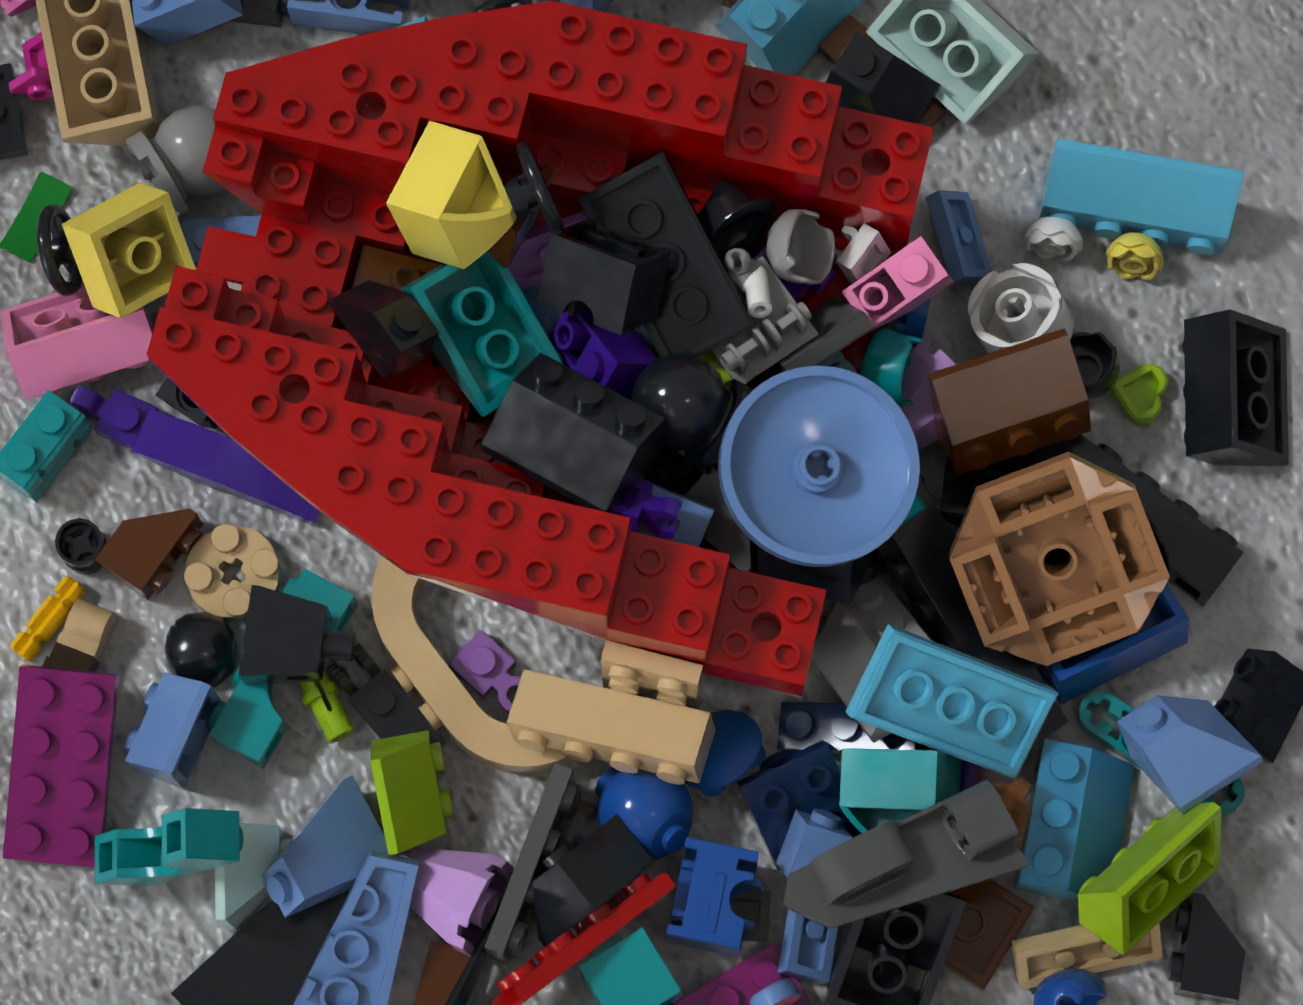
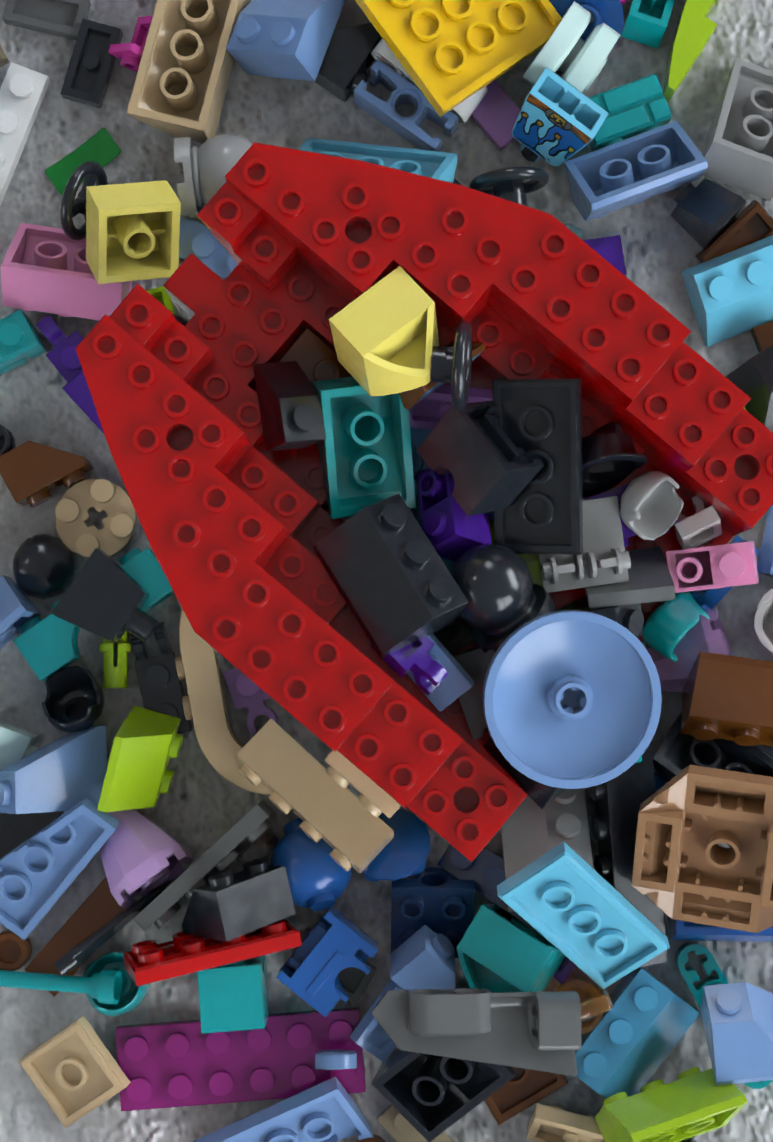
camera: 25 degrees right, 10 degrees up
(303, 767) = (73, 699): none -> black hair
(751, 280) = (597, 513): arm -> none

